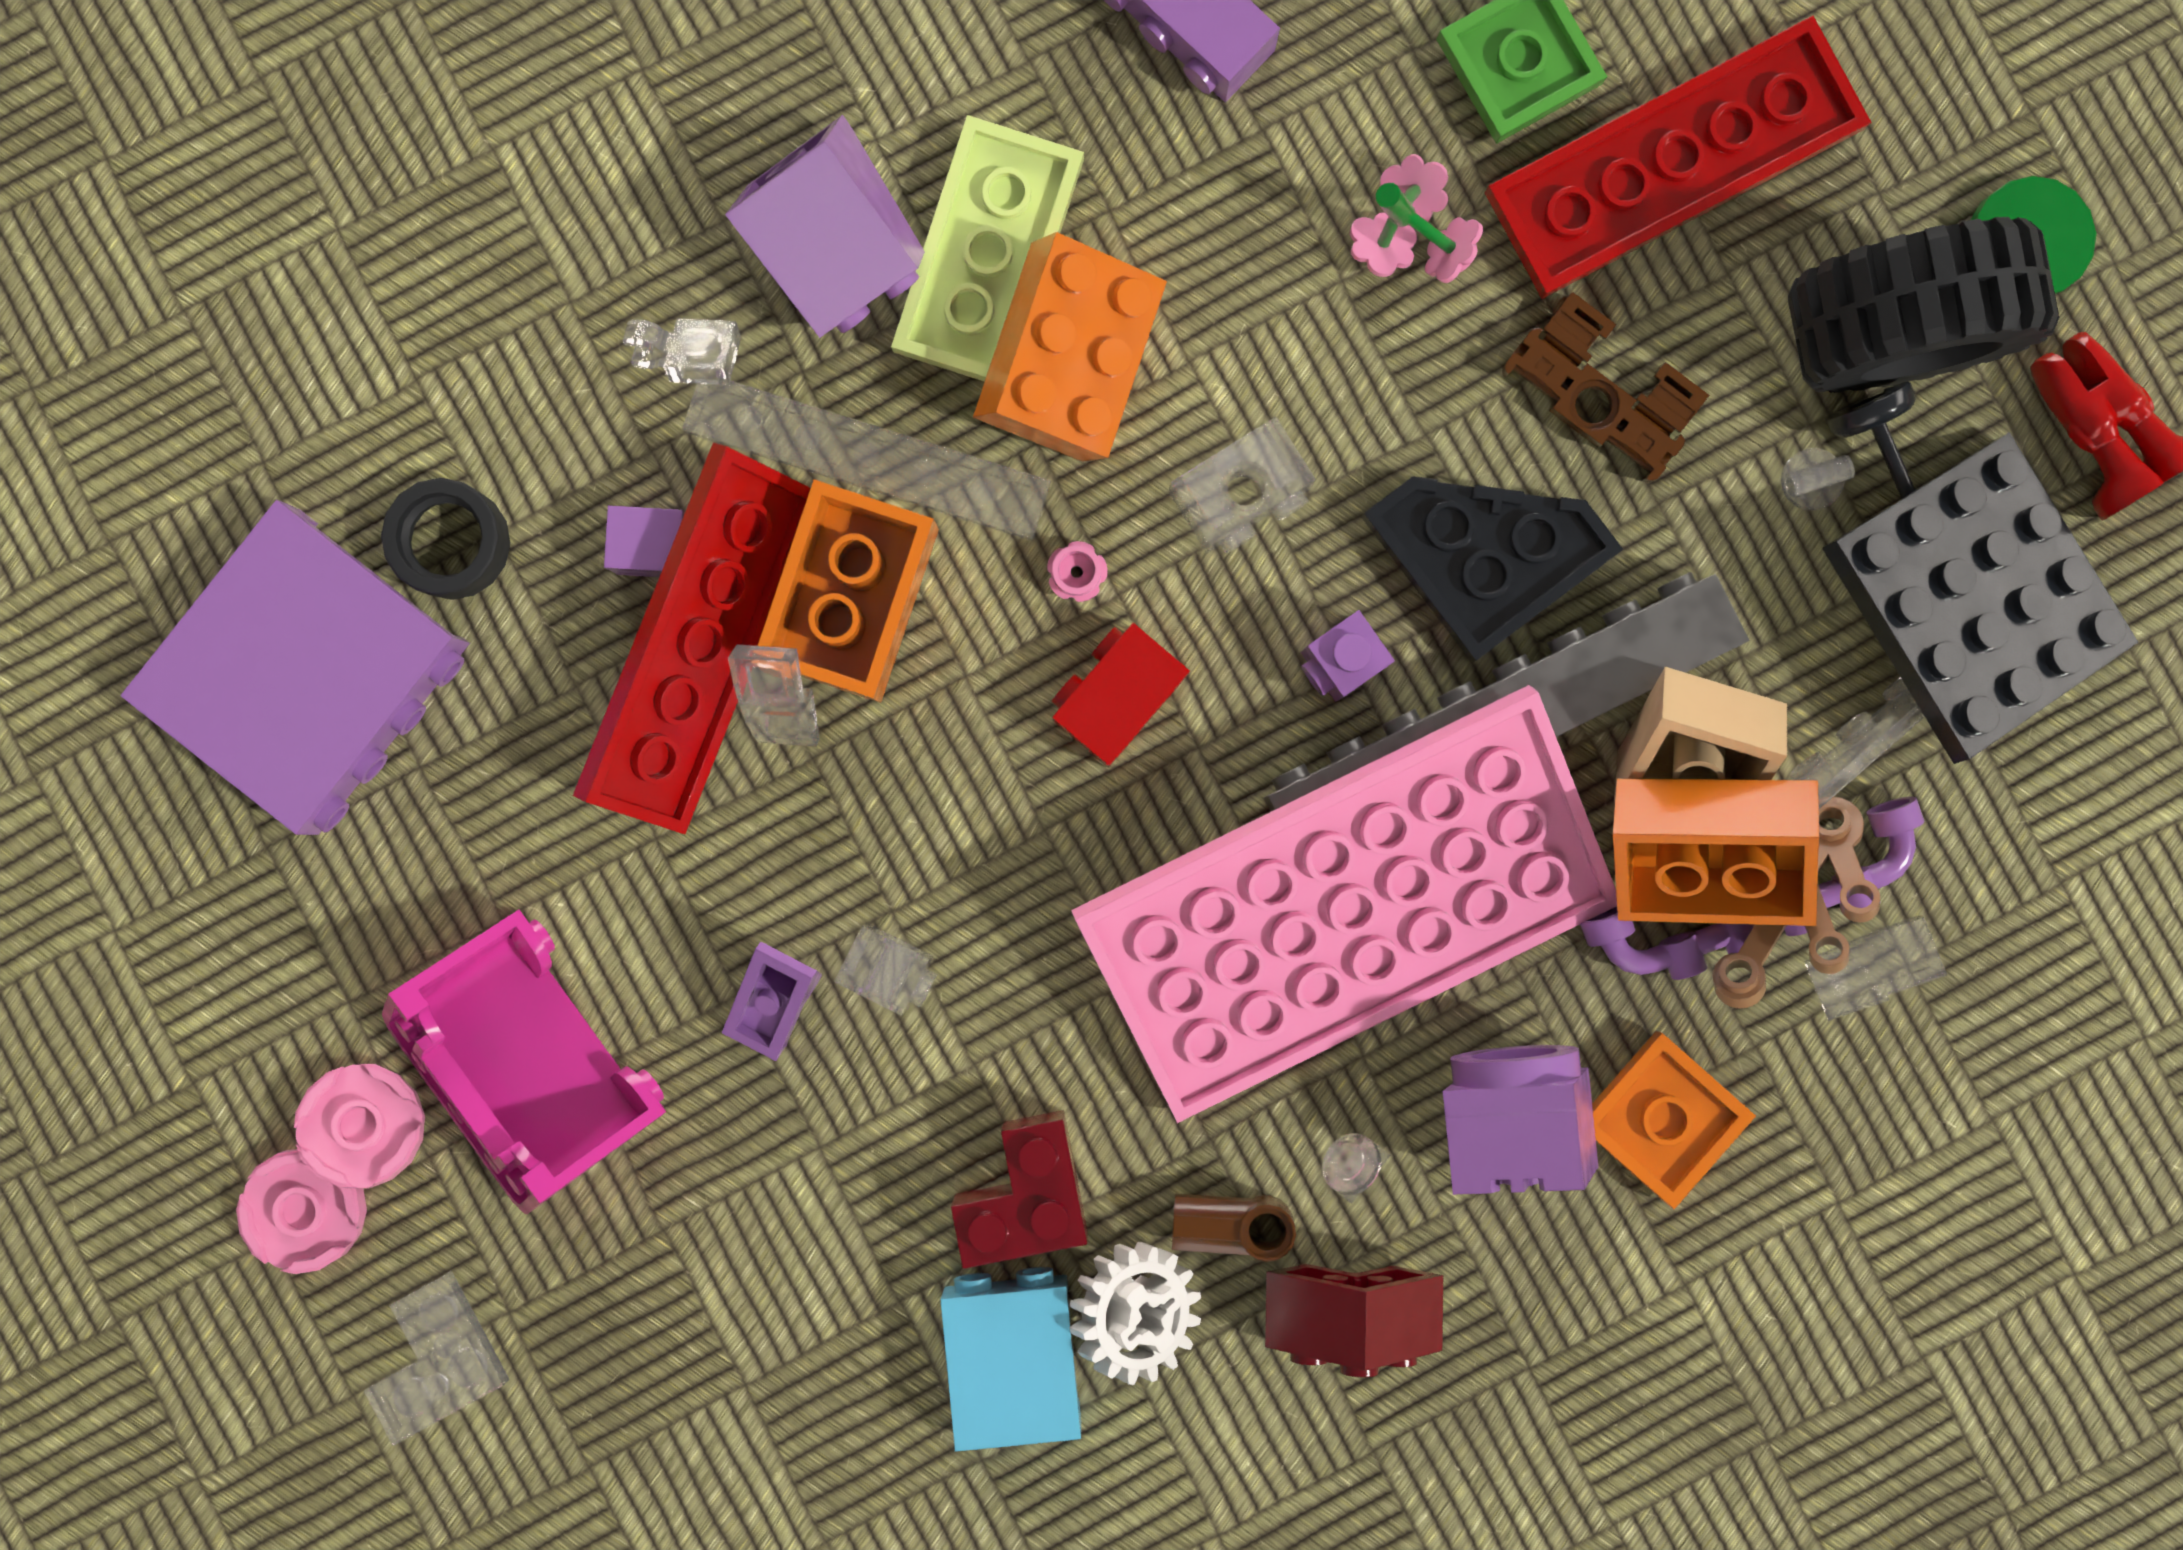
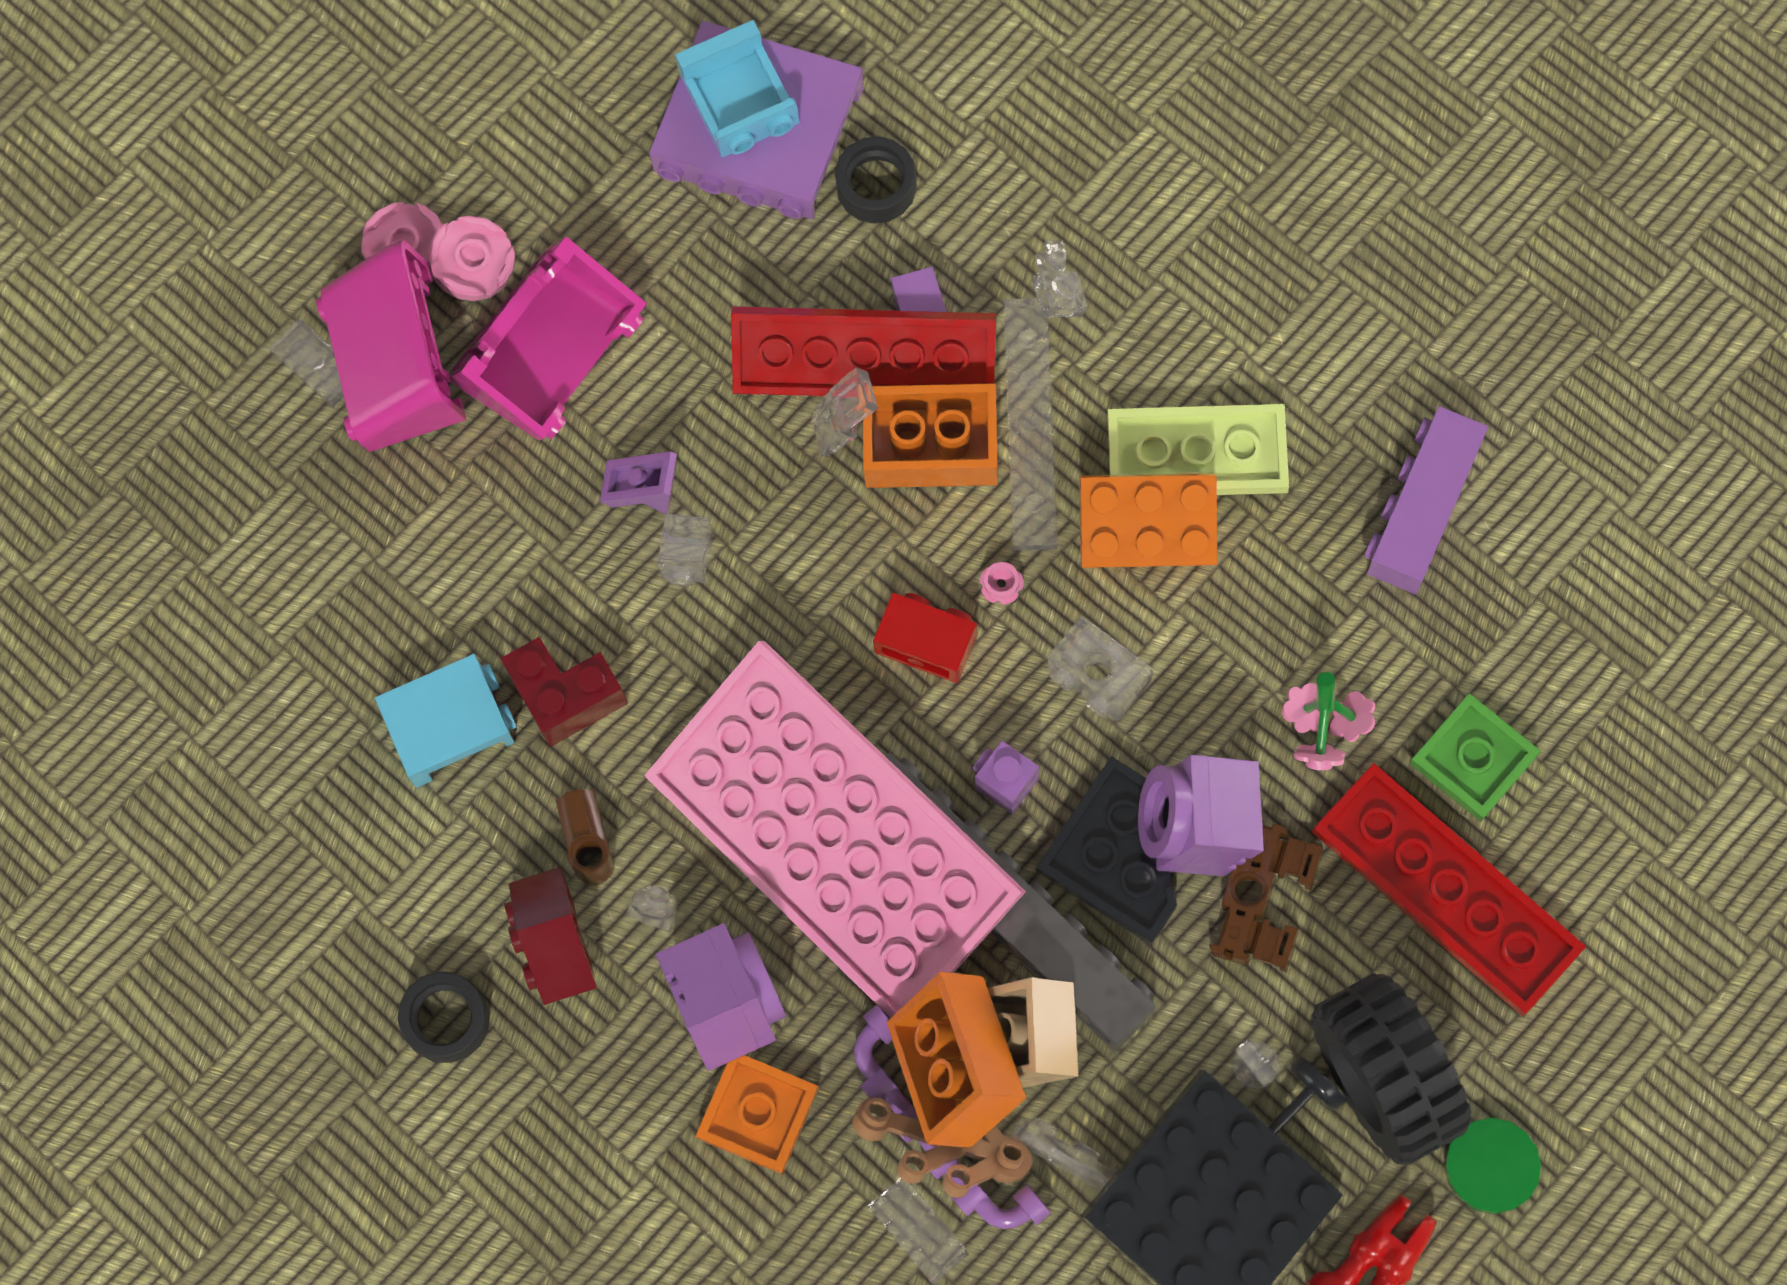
camera: 75 degrees right, 15 degrees down
(247, 682) = (737, 89): none -> medium azure panel
(455, 1286) = (387, 349): none -> dark pink windscreen
(828, 230) = (1168, 340): medium lavender slope -> none
(1135, 1313) = (493, 803): white gear -> none
(1423, 1527) = (423, 989): none -> black tyre
(1502, 423) = (1201, 815): none -> medium lavender piece

